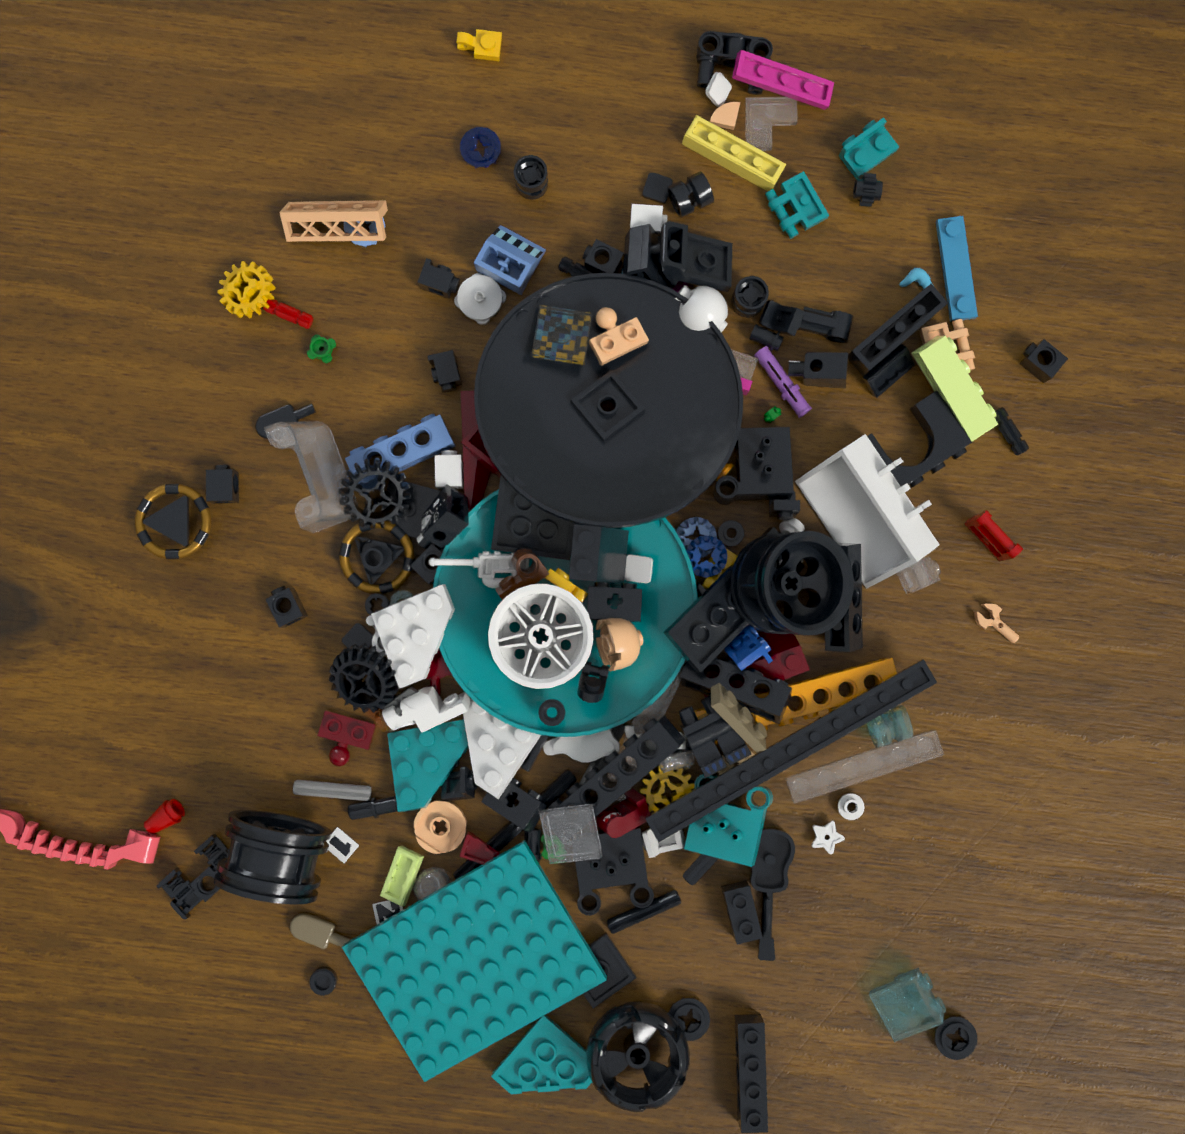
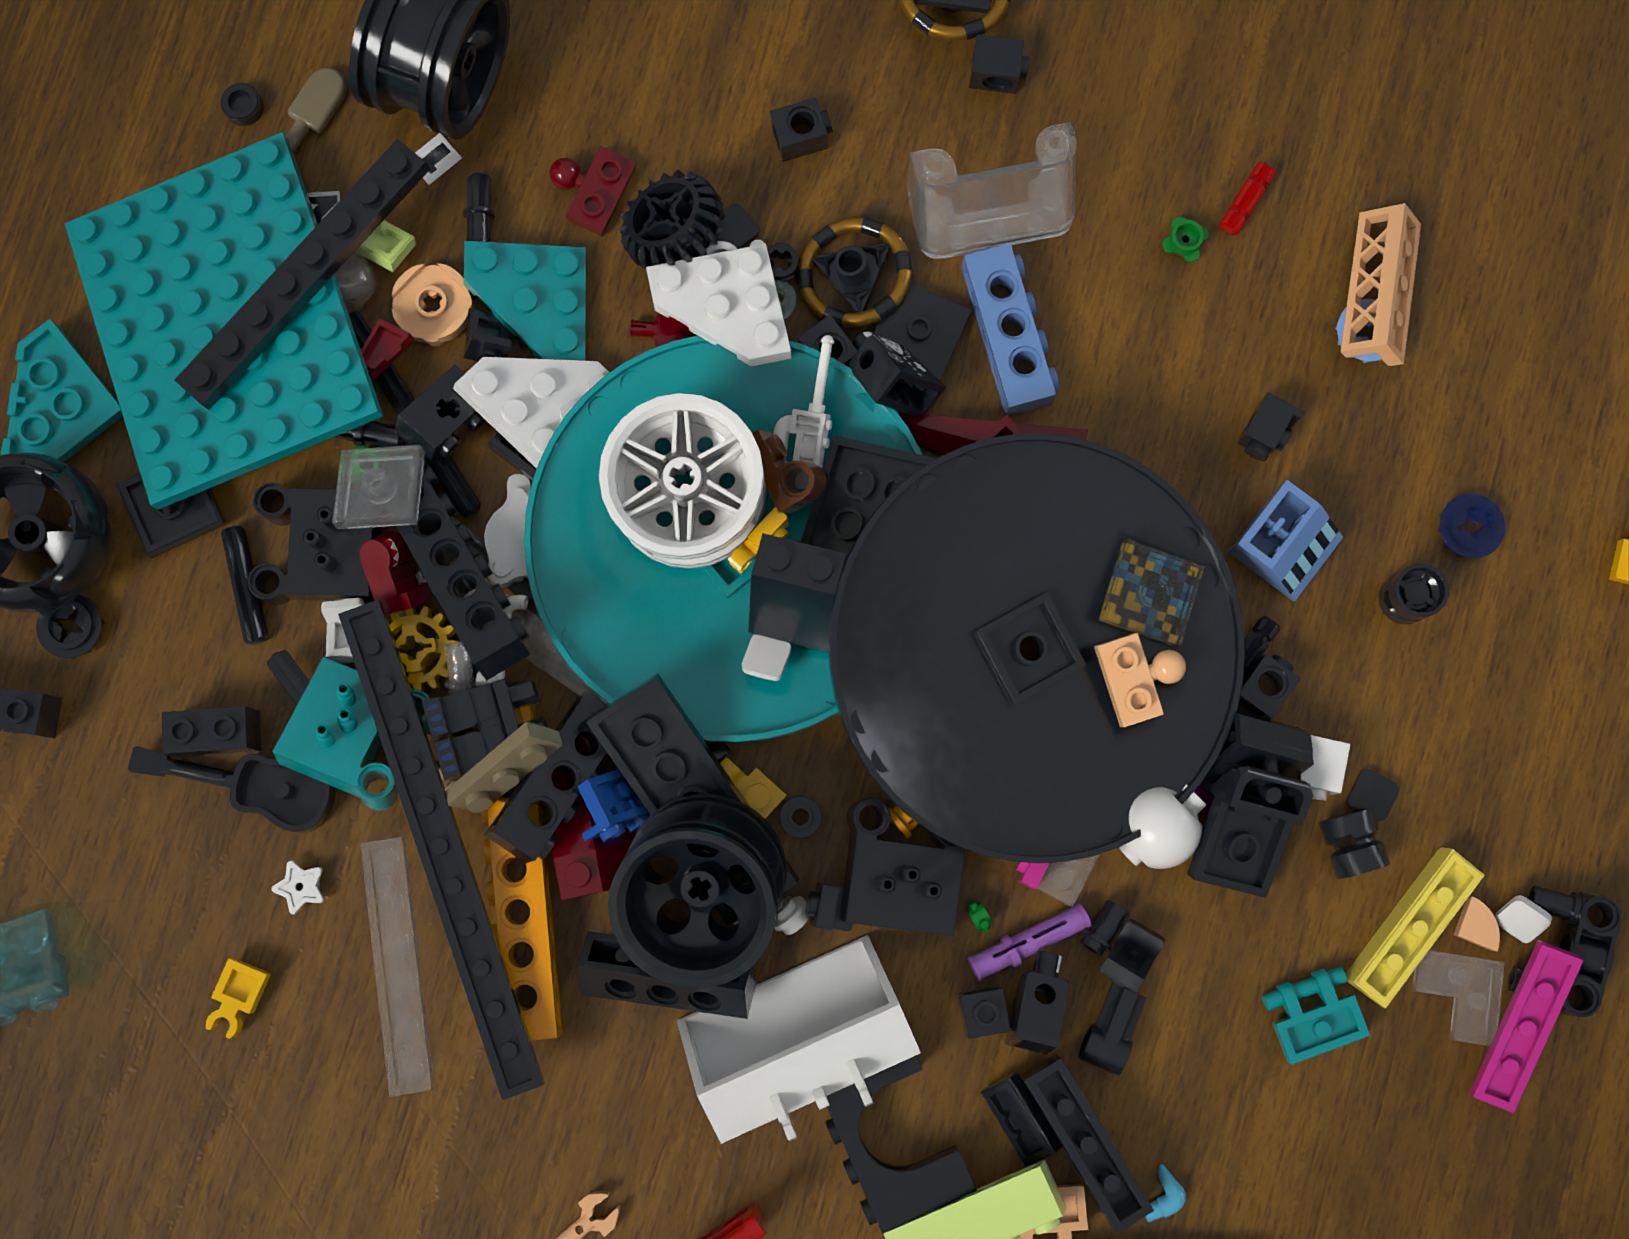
camera: 105 degrees right, 5 degrees down
(244, 288) = (1291, 140): yellow gear -> none
(282, 414) = (1089, 170): black piece -> none
(332, 790) = (516, 157): light grey axle -> none
(393, 503) = (955, 262): black gear -> none
(422, 708) = (612, 300): white plate -> none
(439, 910) = (302, 274): none -> black plate
(445, 370) = (1124, 417): black brick -> none
(449, 470) = (968, 396): white brick -> none
(480, 298) = (1231, 488): white piece -> none
(552, 721) = (562, 474): black plate -> none
(591, 688) = (591, 551): black plate -> none
(602, 592) = (714, 585): black brick -> none
(618, 642) = (655, 606): light nougat cylinder -> none
(689, 525) = (815, 777): light blue gear -> none
(719, 556) = (766, 788): blue gear -> none
(749, 296) = (1174, 910): black wheel -> none
(830, 402) = (984, 1012): none -> black brick
(845, 800) = (350, 926): white plate -> none
(867, 189) = (1326, 1137): black gear -> none
(868, 149) = (1395, 1152): teal bracket -> none
(890, 726) = (450, 1017): clear light blue wheel -> none
(897, 861) = (239, 991): none -> yellow plate
(919, 575) = (681, 1110): clear brick -> none

